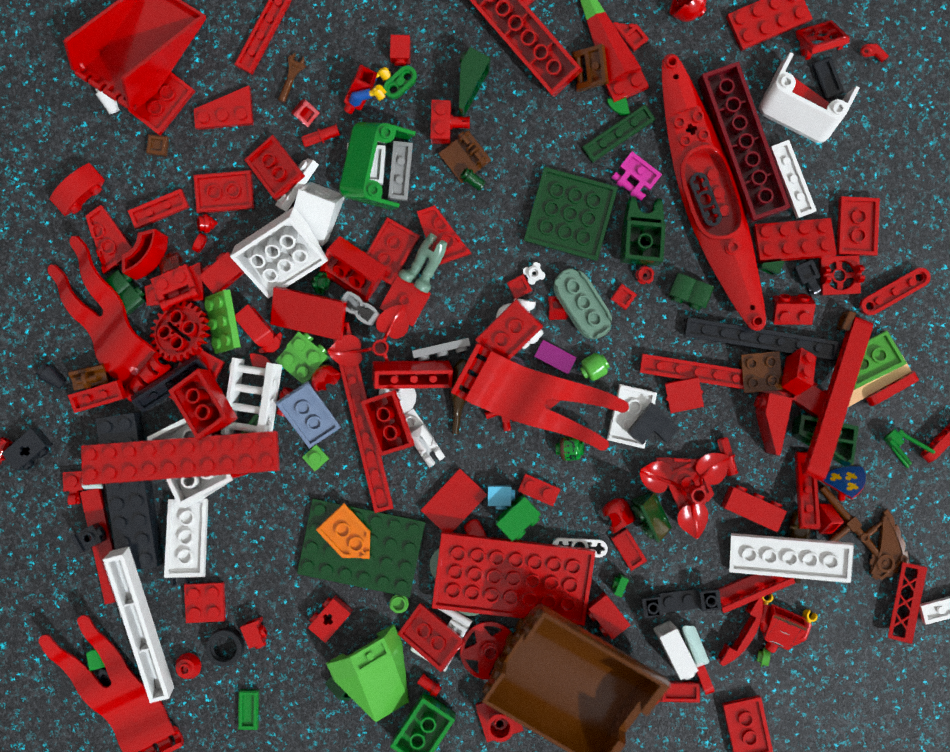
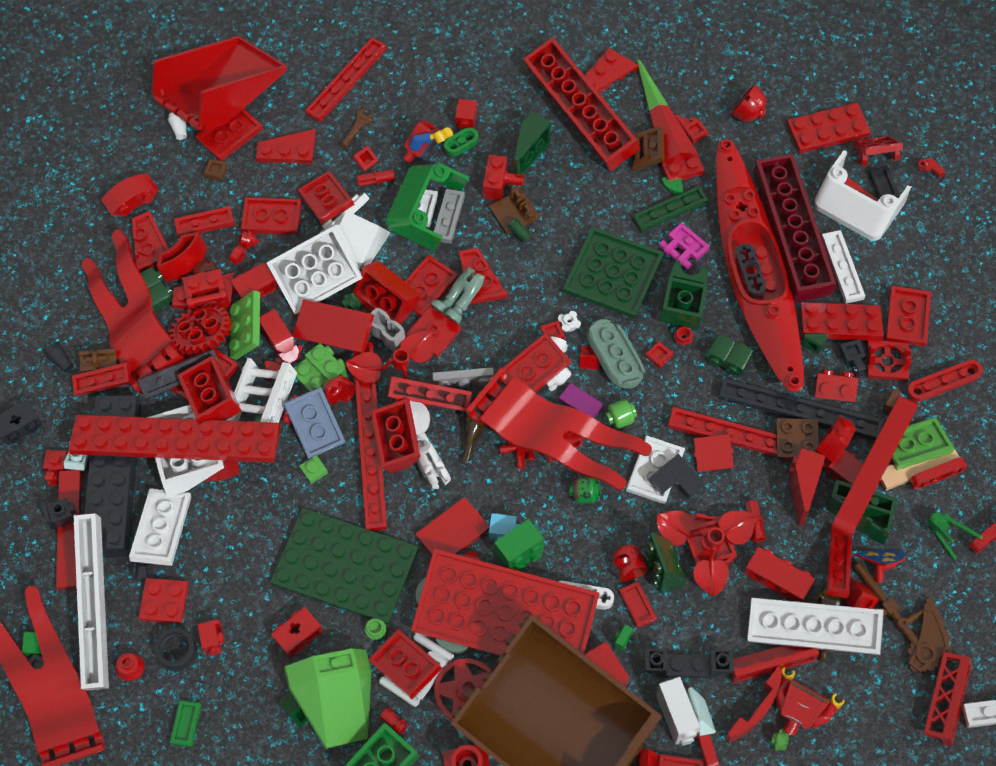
camera: 10 degrees right, 25 degrees down
(346, 534) = (331, 543): orange tile -> none
(539, 489) = (552, 532): red plate -> none

